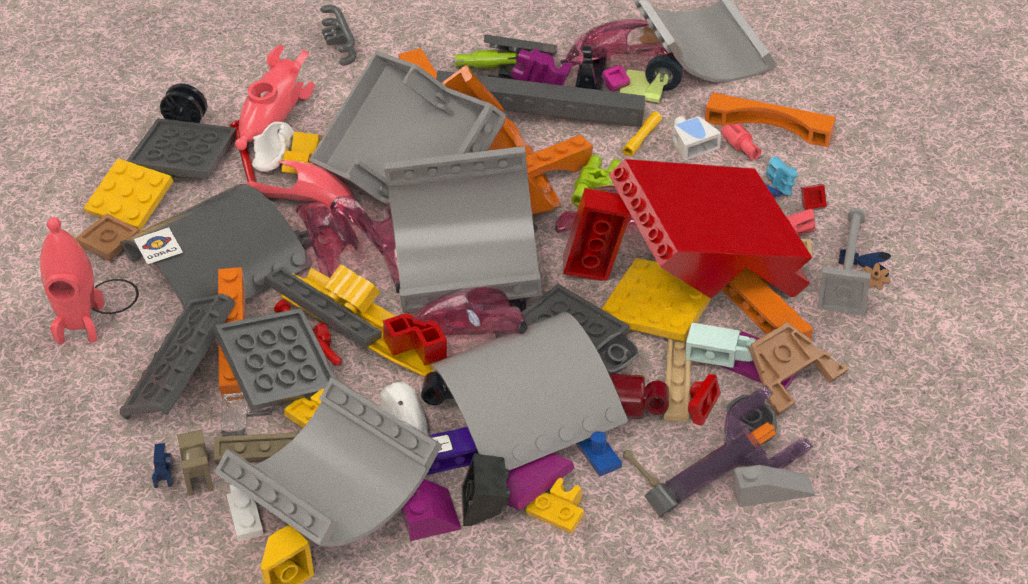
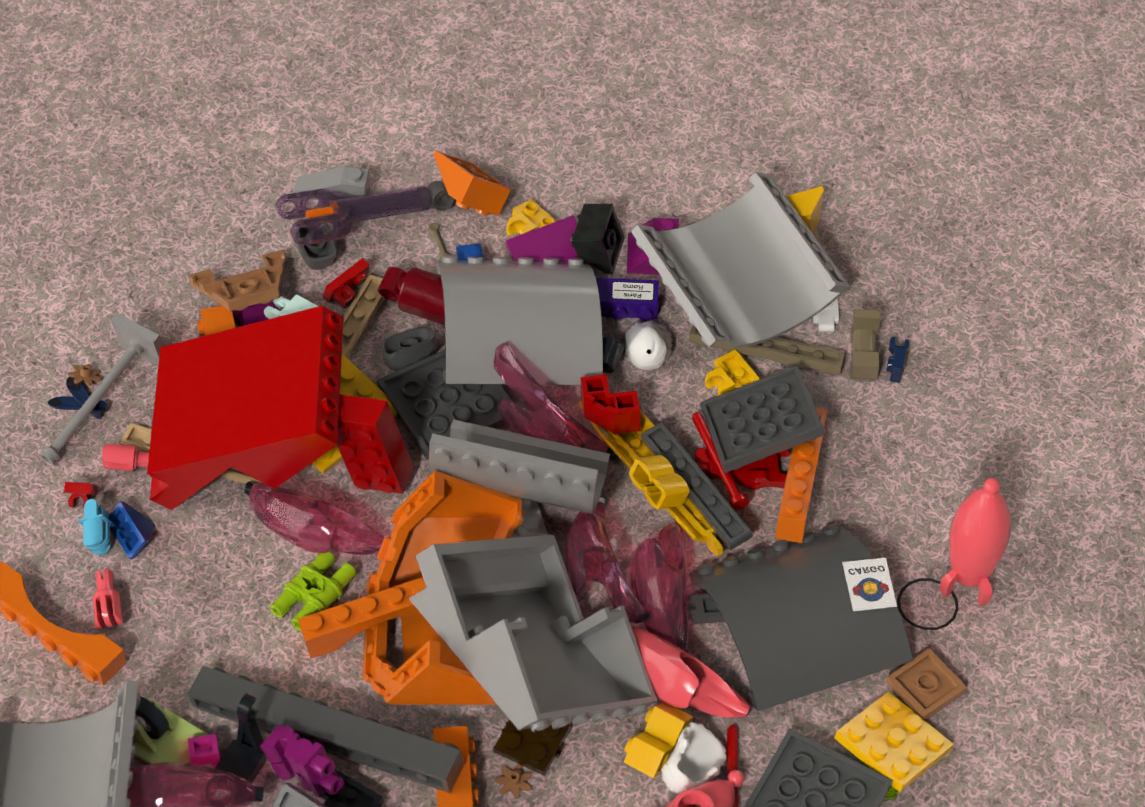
camera: 165 degrees left, 10 degrees up
(178, 356) = (867, 450): dark grey ladder -> none
(637, 511) = (471, 185): none -> orange slope
(647, 127) = (230, 648): yellow piece -> none
(695, 137) = (161, 623): white torso -> none

